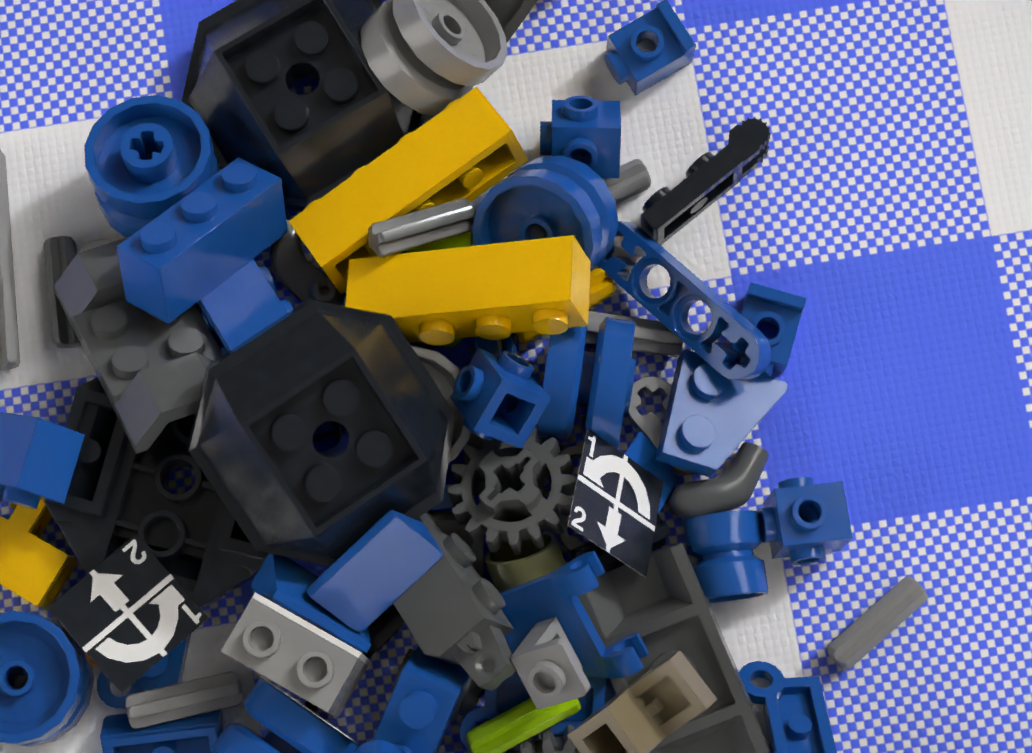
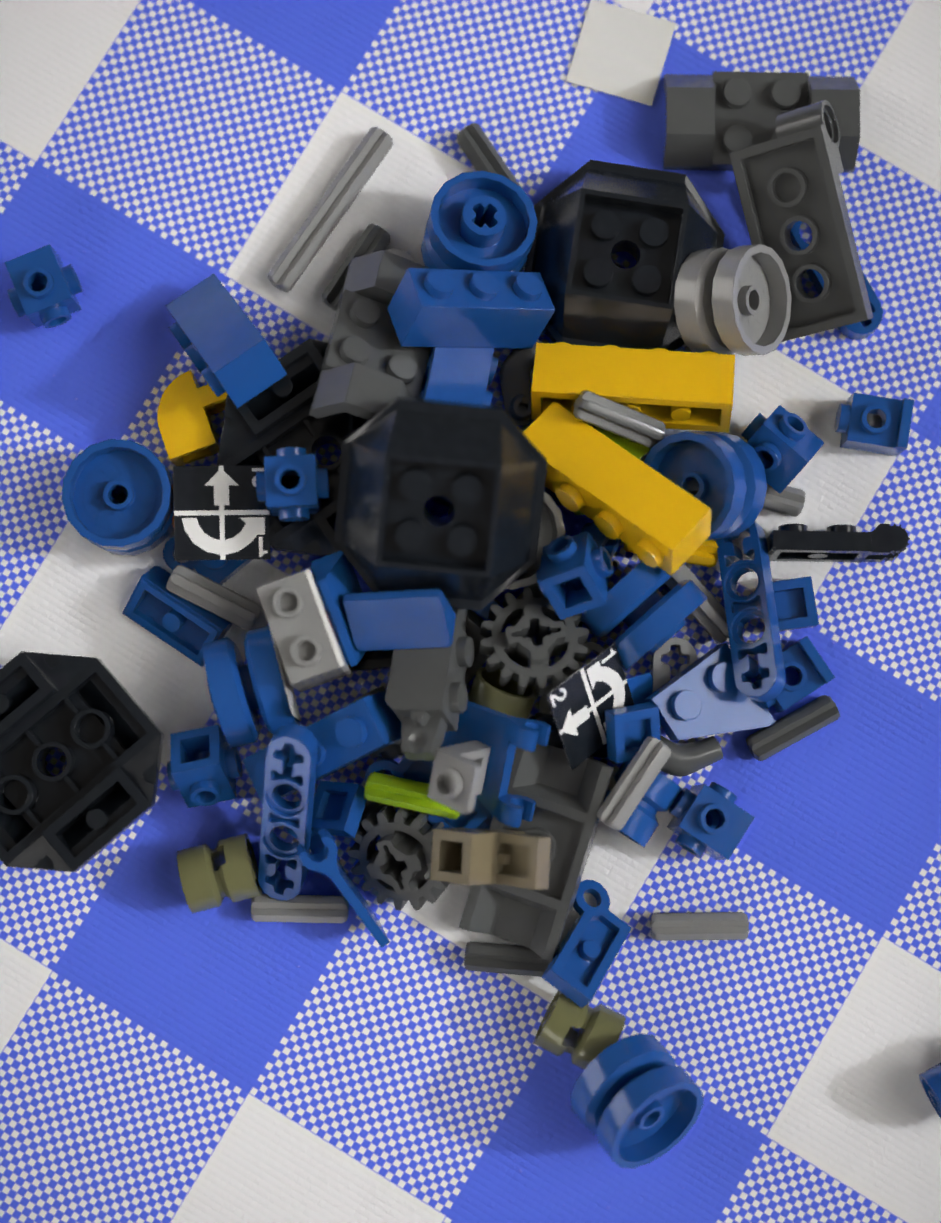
camera: 40 degrees right, 5 degrees up
(91, 95) = (482, 152): none -> dark grey axle
(192, 543) = (294, 503): none -> blue brick
(671, 497) = (629, 728): none -> blue plate
(711, 540) = (634, 783): none -> light grey axle
(716, 263) = (795, 604): none -> blue plate
(807, 376) = (792, 727): none -> dark grey axle

